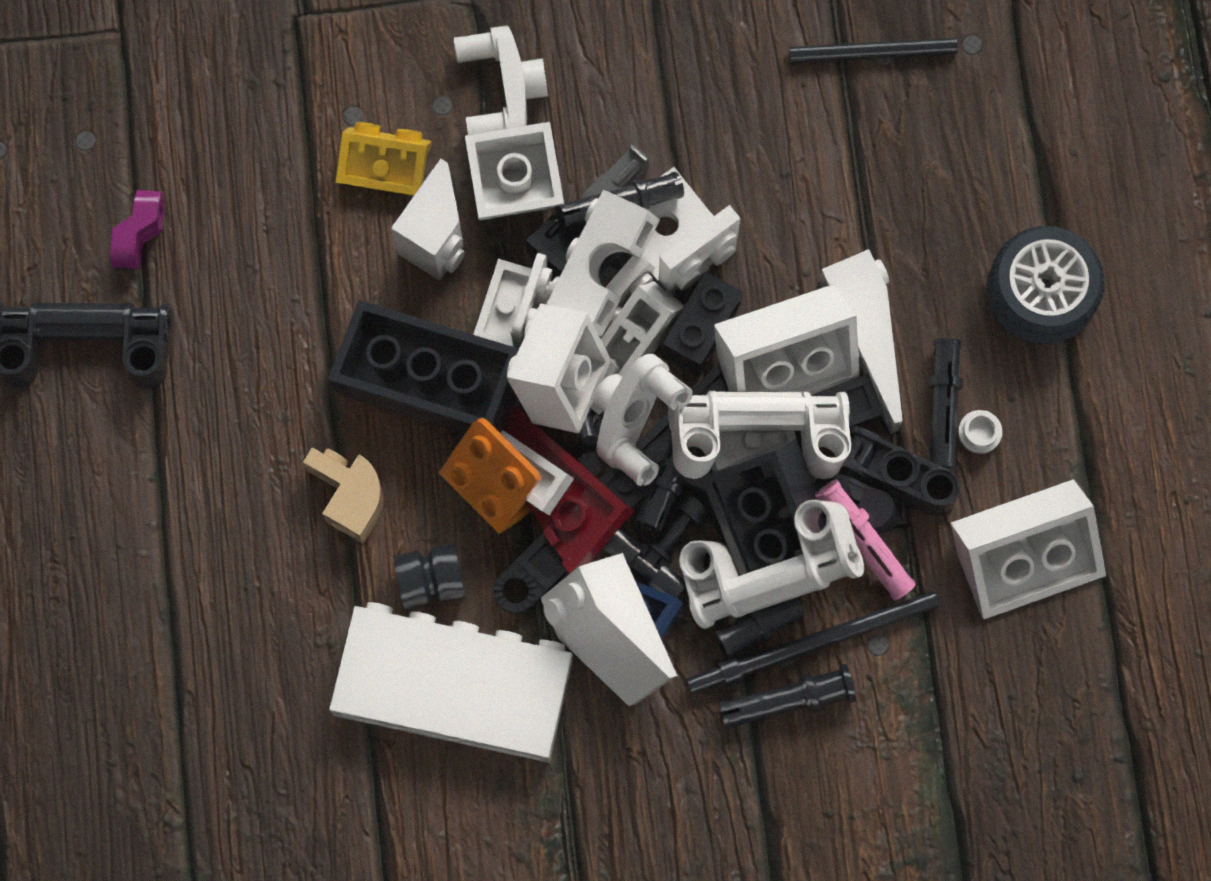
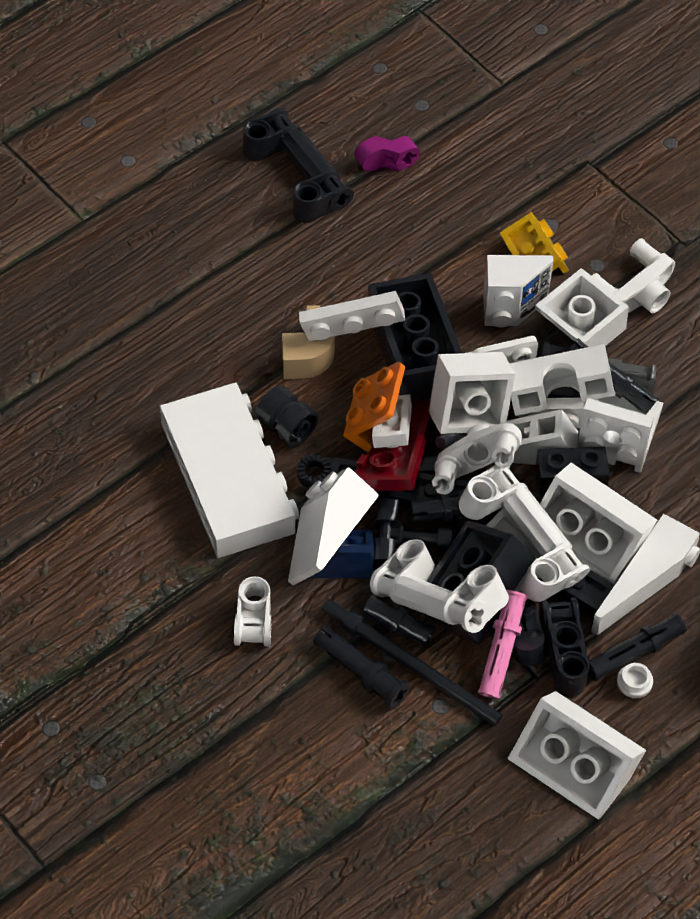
camera: 55 degrees right, 20 degrees down
(373, 430) = (352, 316): none -> white plate
(658, 774) = (253, 617): none -> white piece

